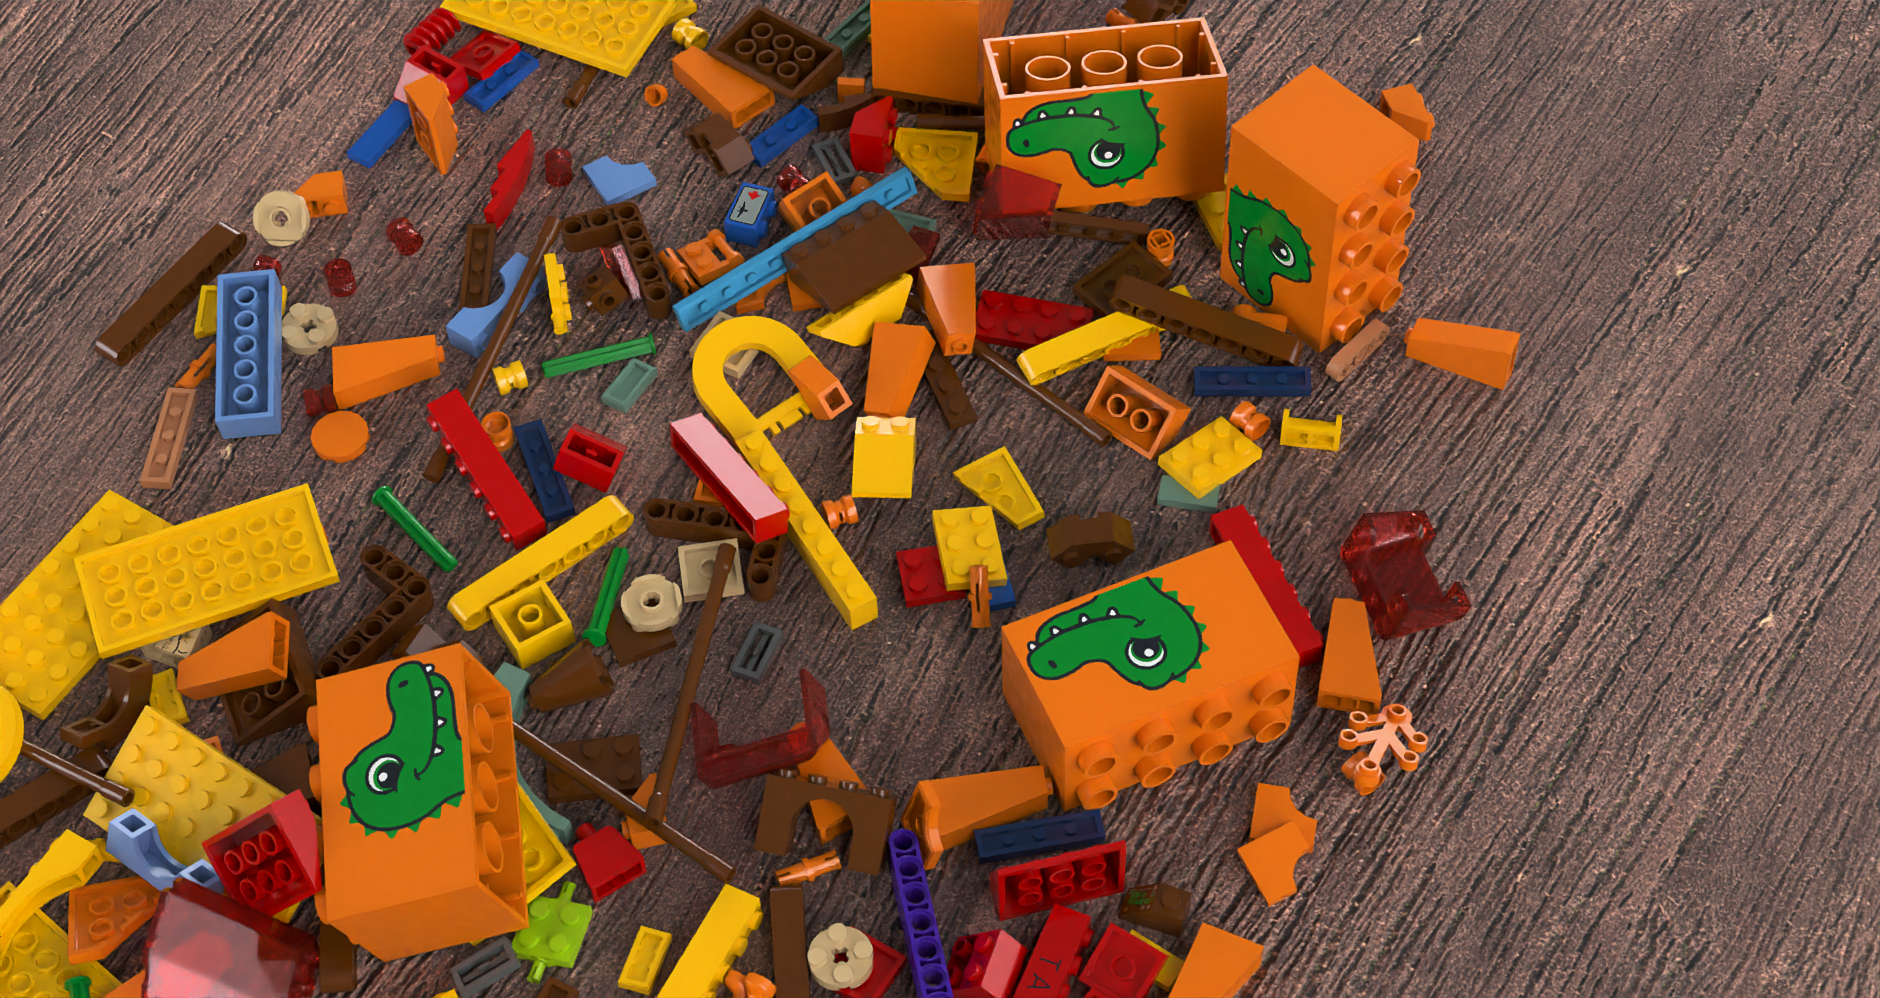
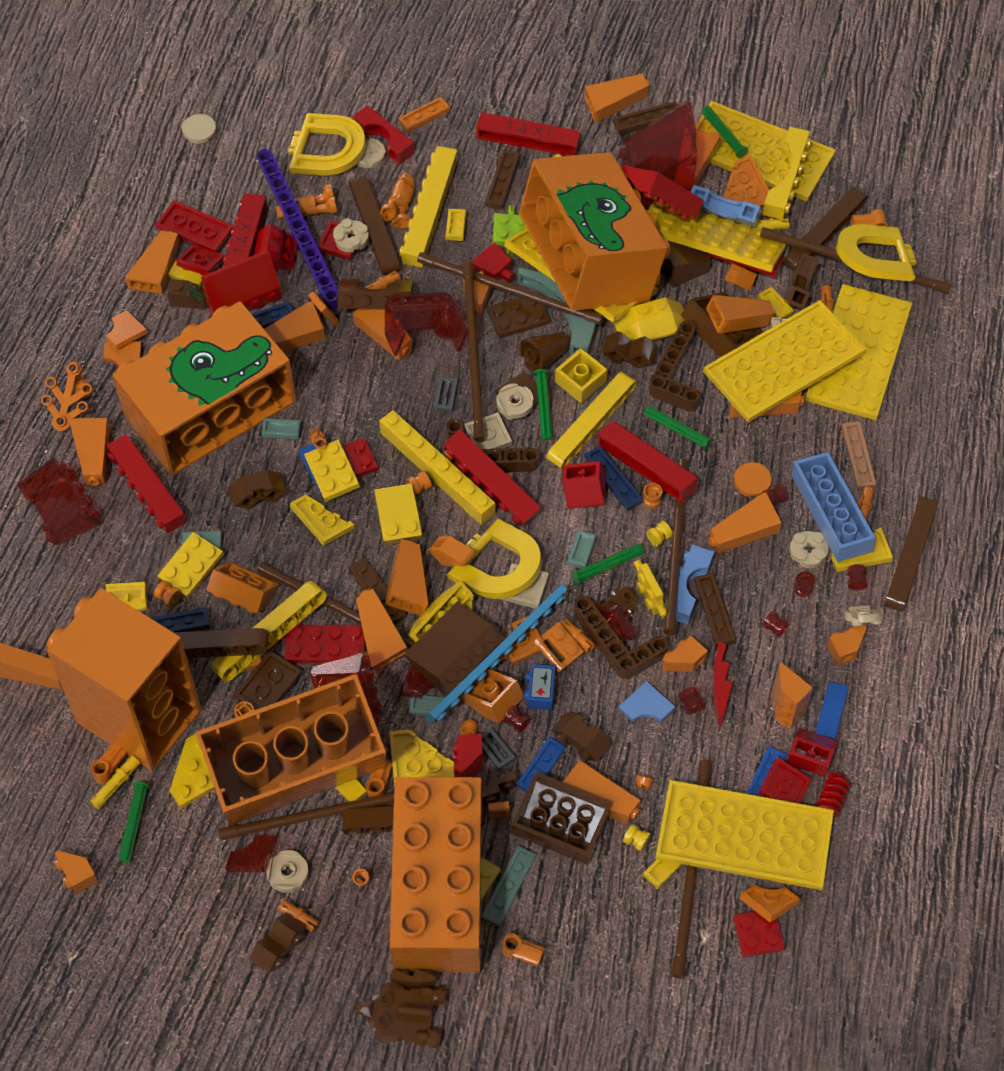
camera: 165 degrees right, 5 degrees up
(81, 688) = (826, 294): none -> orange pin
(533, 212) = (686, 657): none -> orange slope

